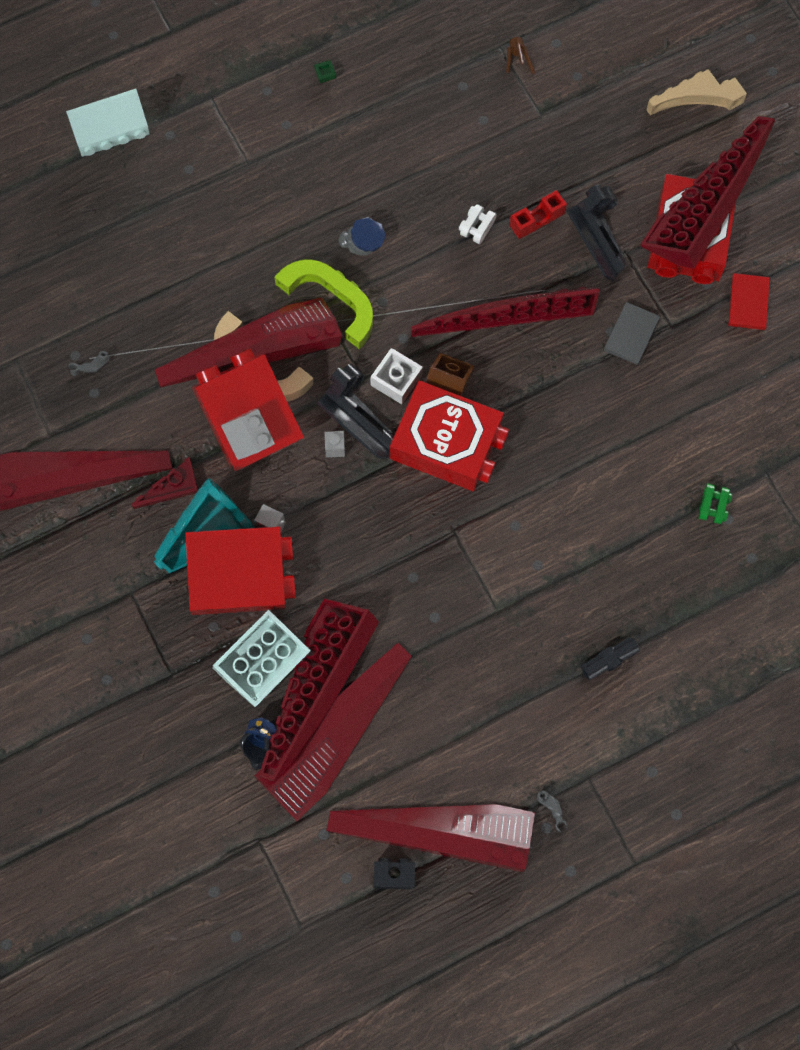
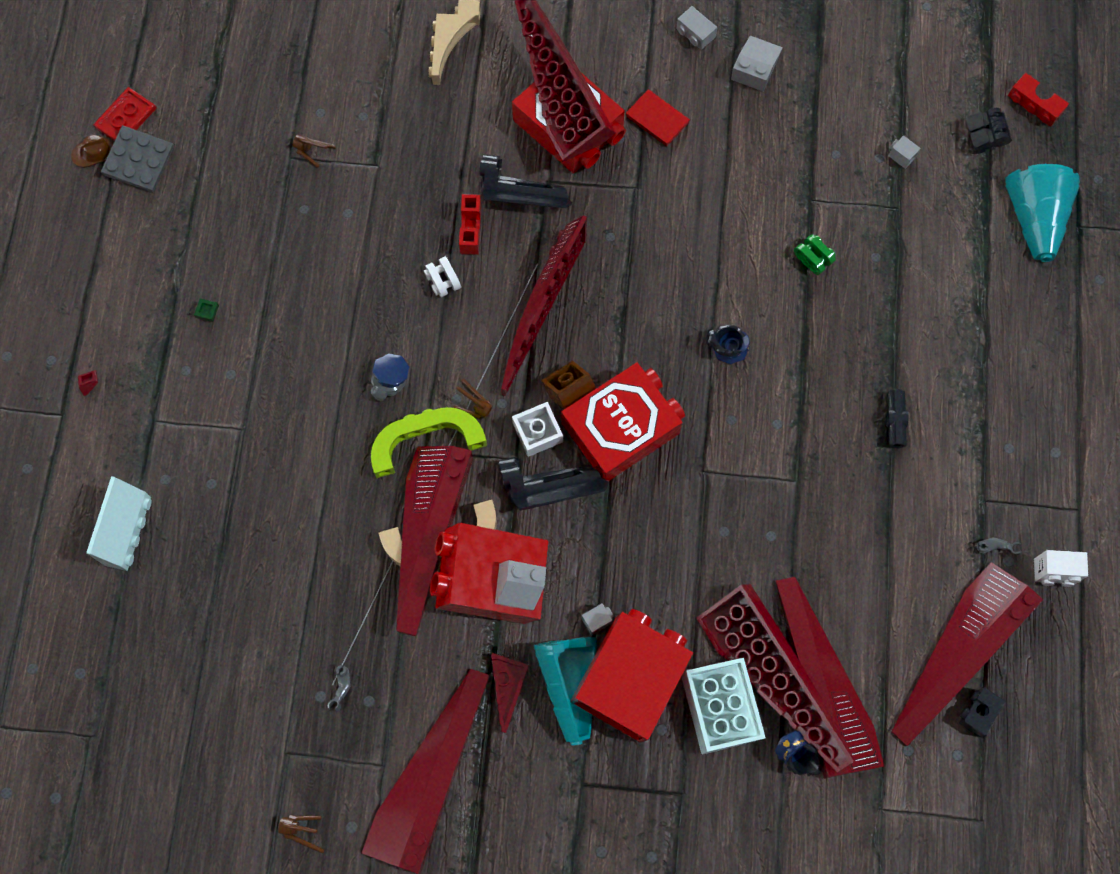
camera: 55 degrees left, 0 degrees up
(208, 28) = (87, 382): none -> dark red slope
(334, 444) = (564, 520): light grey brick -> none
(387, 323) = (482, 407): none -> reddish brown plant
(565, 870) = (1060, 567): none -> white brick
(579, 480) = (728, 343): none -> piece
(631, 333) = (624, 221): dark grey tile -> none

